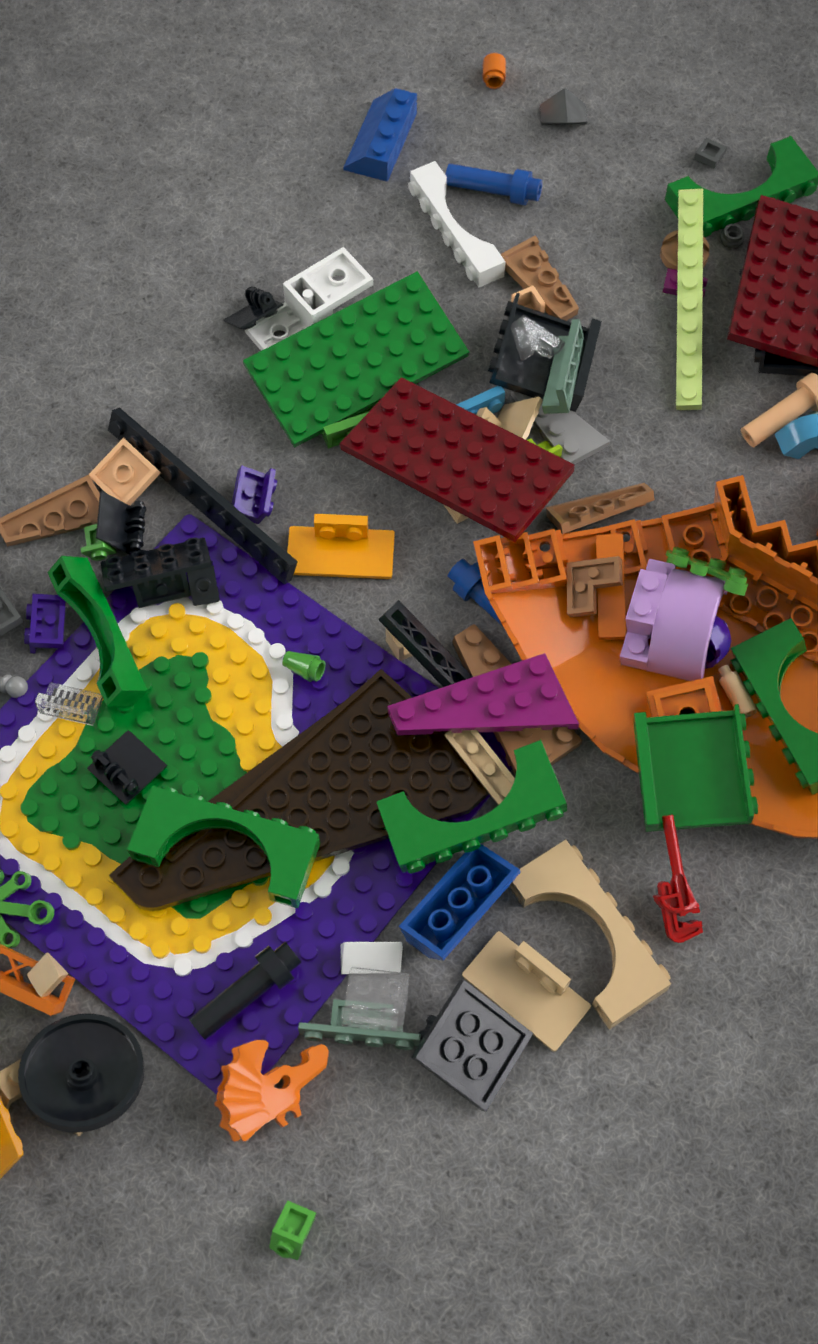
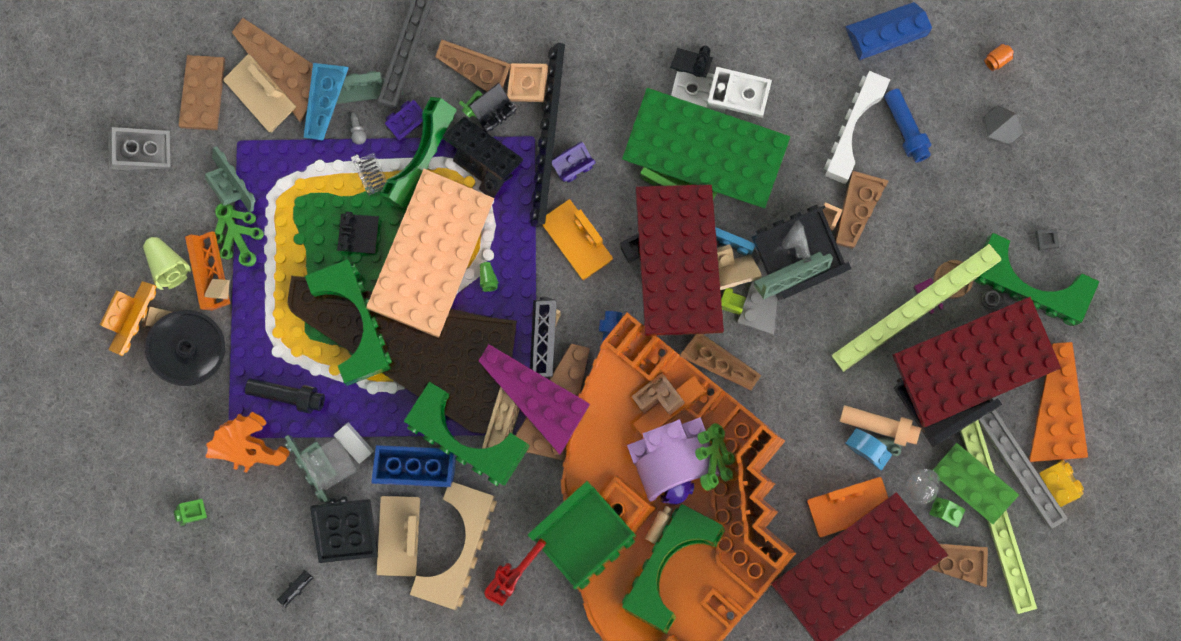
camera: 55 degrees right, 15 degrees up
(225, 700) = (430, 253): none -> light nougat plate
(399, 505) = (630, 248): none -> black panel
(496, 1166) = (295, 588): none -> black pin

